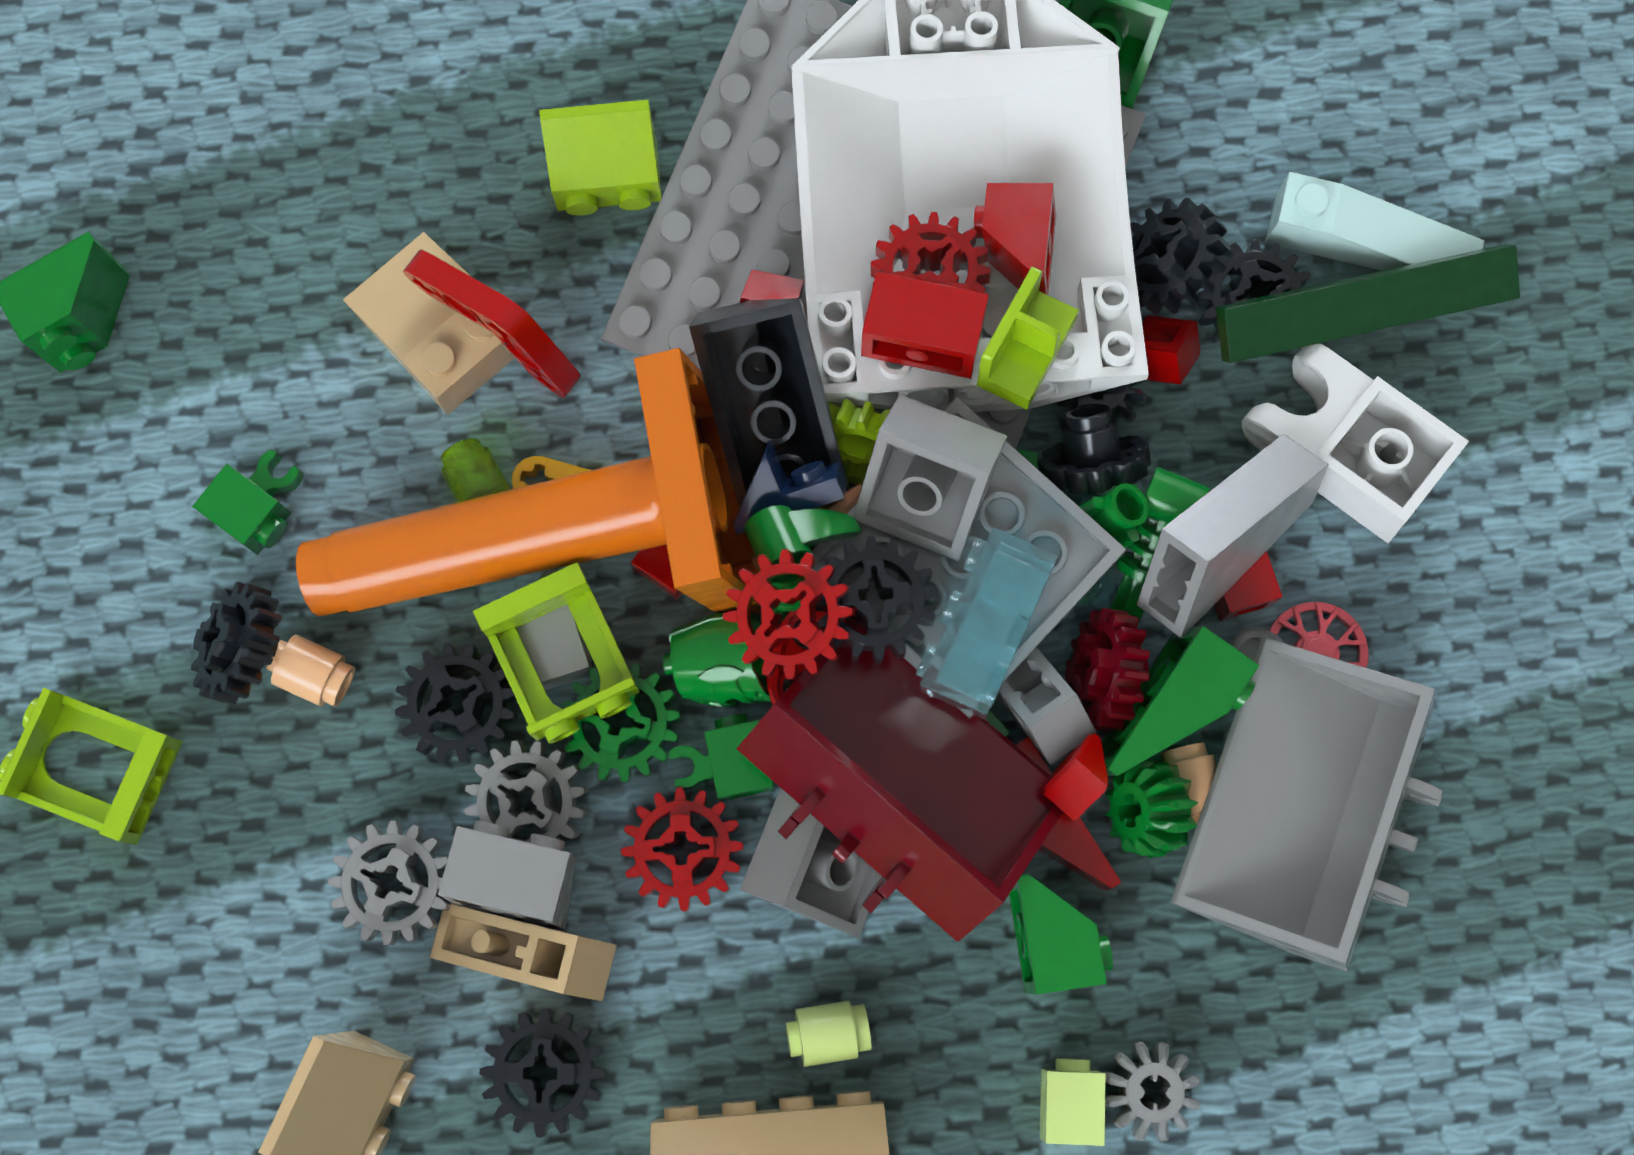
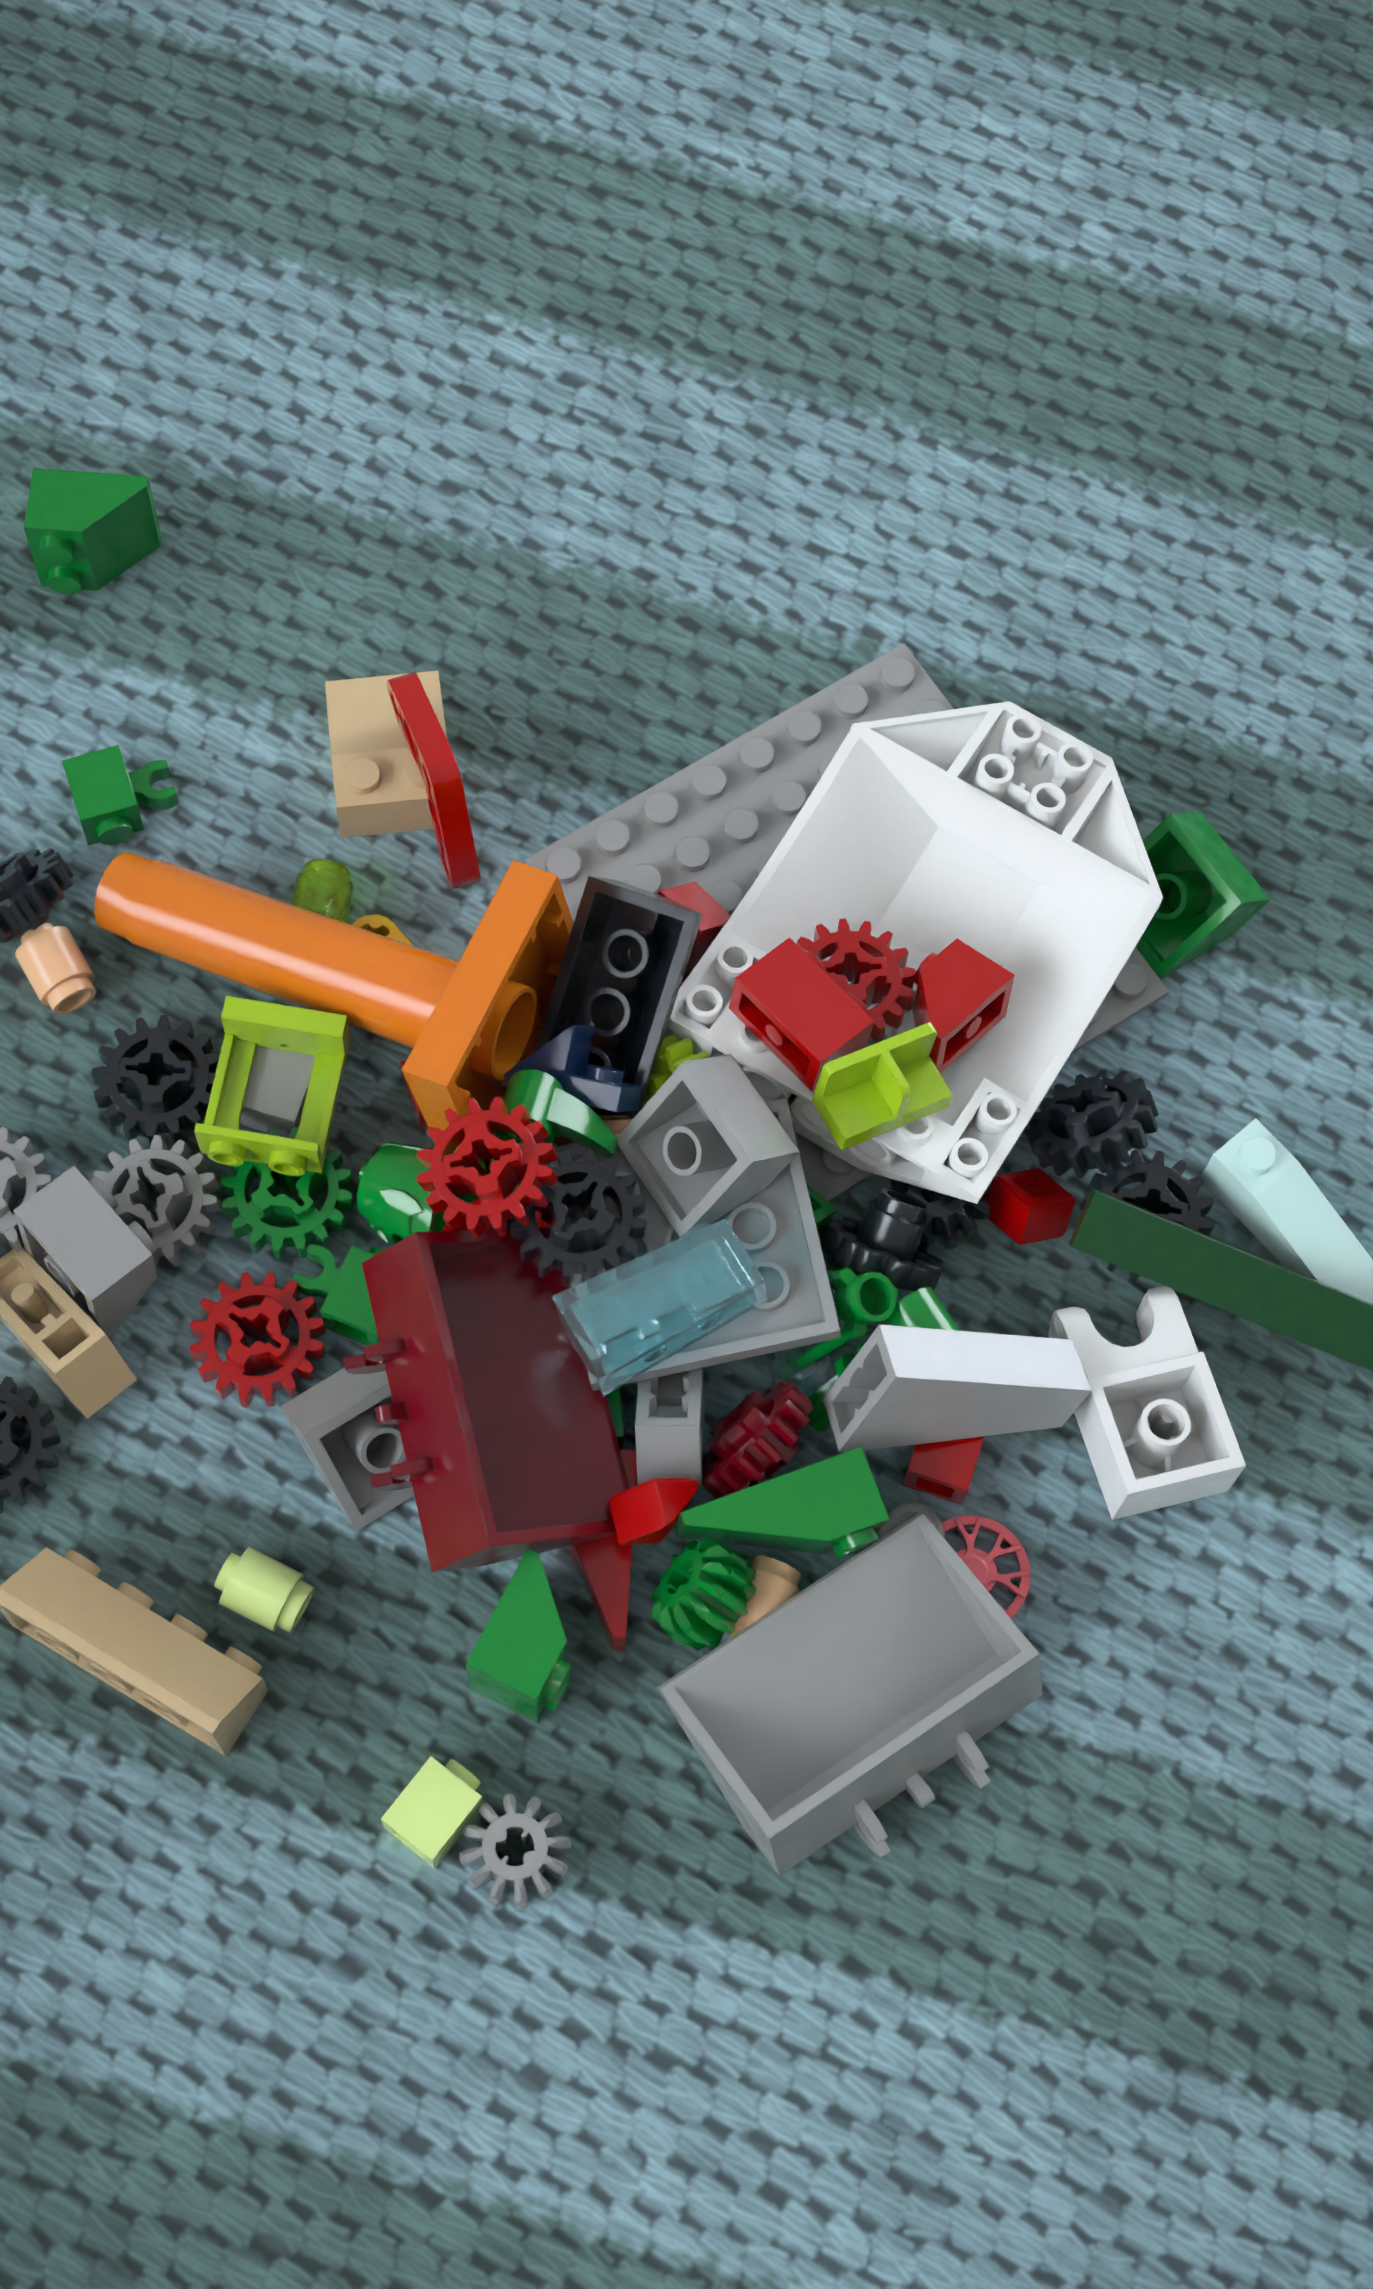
camera: 30 degrees right, 10 degrees down
(601, 156) = (637, 703): lime slope -> none

